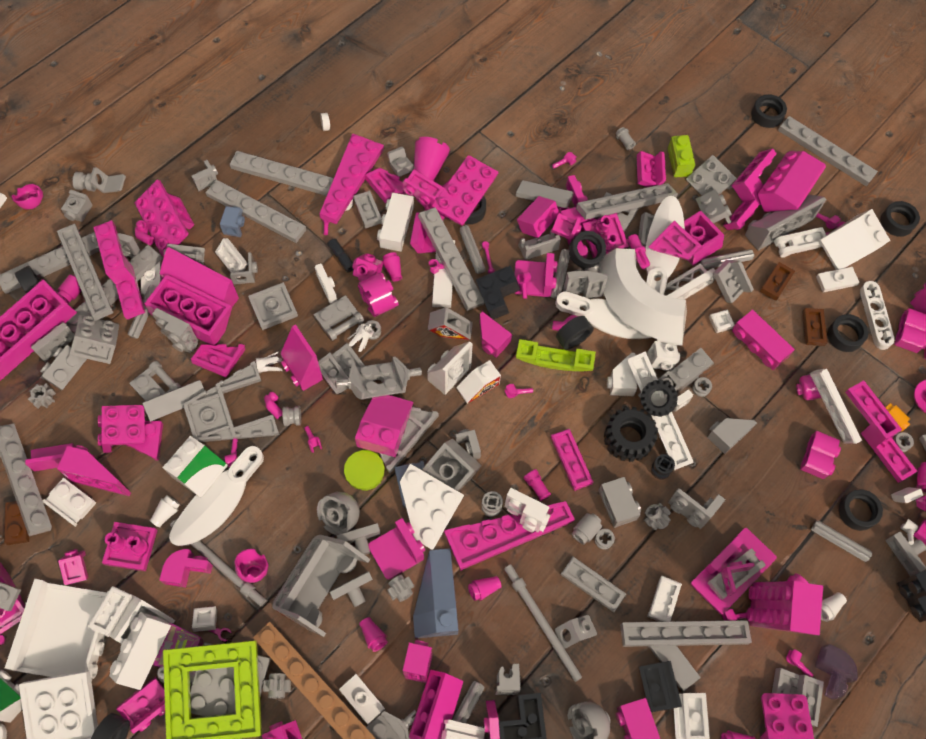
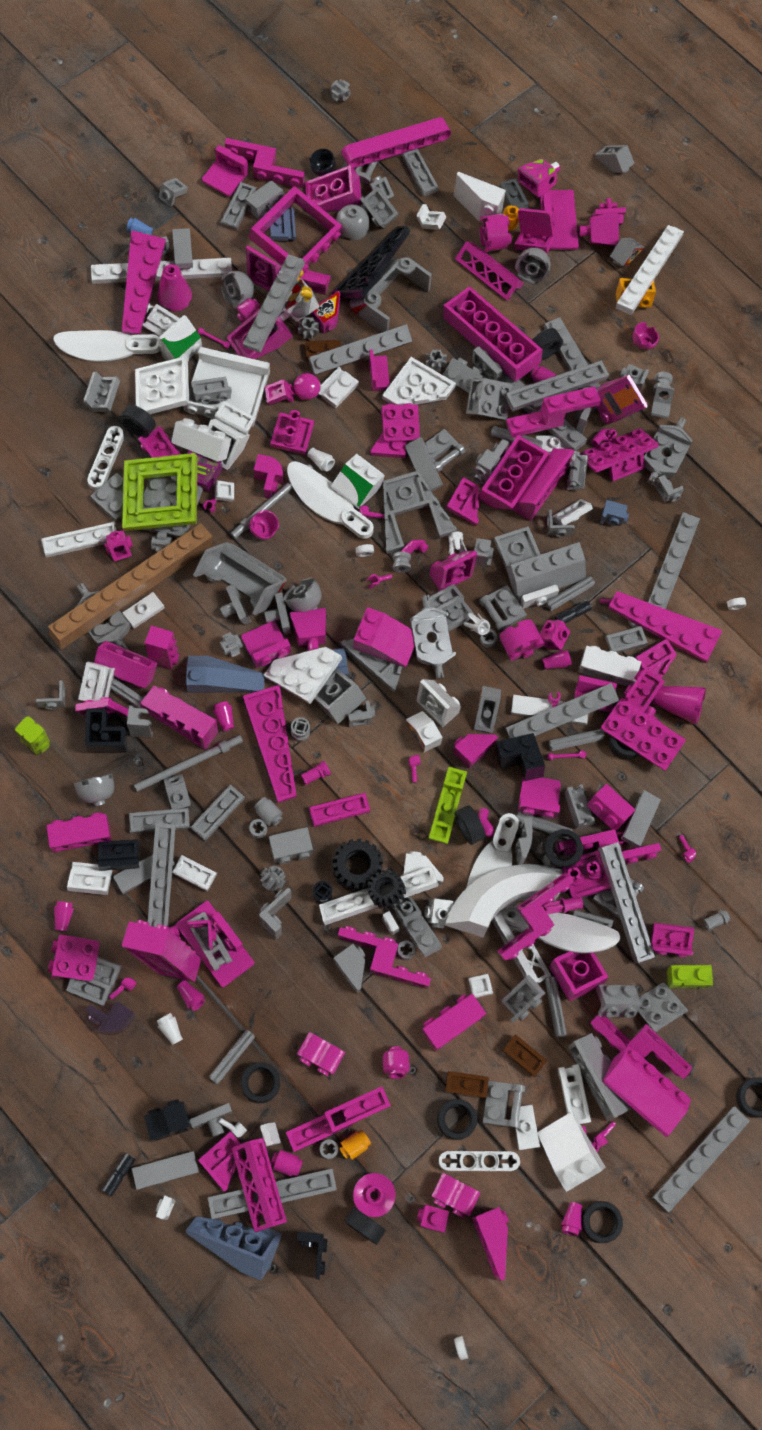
camera: 90 degrees right, 5 degrees up
(67, 534) = (306, 386): none -> dark pink hair
(68, 648) = (211, 390): none -> light grey bracket
(72, 413) = (418, 385): none -> white plate
(84, 469) = (359, 400): dark pink slope -> none
(106, 203) = (619, 399): none -> dark pink slope
(152, 169) = (674, 441): none -> light grey plate
(256, 211) = (627, 537): light grey plate -> none
(277, 333) = (484, 552): none -> light grey brick
(279, 454) = (364, 550): none -> white tile
(297, 276) = (555, 567): none -> light grey slope
(319, 258) = (570, 593): none -> light grey axle
(364, 470) = (343, 622): lime tile -> none
(373, 634) = (192, 621): dark pink cone -> none
(376, 503) = (309, 627): none -> dark pink torso
(399, 162) = (683, 675): light grey bracket -> none
(493, 635) = (180, 716): none -> dark pink wedge
(522, 279) = (535, 782): dark pink hand -> none
(533, 512) = (282, 753): white plate -> none
(566, 226) = (591, 829): dark pink bracket -> none
(611, 647) = (145, 821): none -> light grey tile
(661, 266) = (535, 917): none -> dark pink bracket
(676, 242) = (565, 939): dark pink wing -> none
(715, 404) = (384, 957): none -> dark pink bracket
(828, 301) = (497, 1102): none -> light grey plate
(835, 406) = (367, 1074): white tile -> none
(906, 240) = (572, 1220): none -> dark pink cone

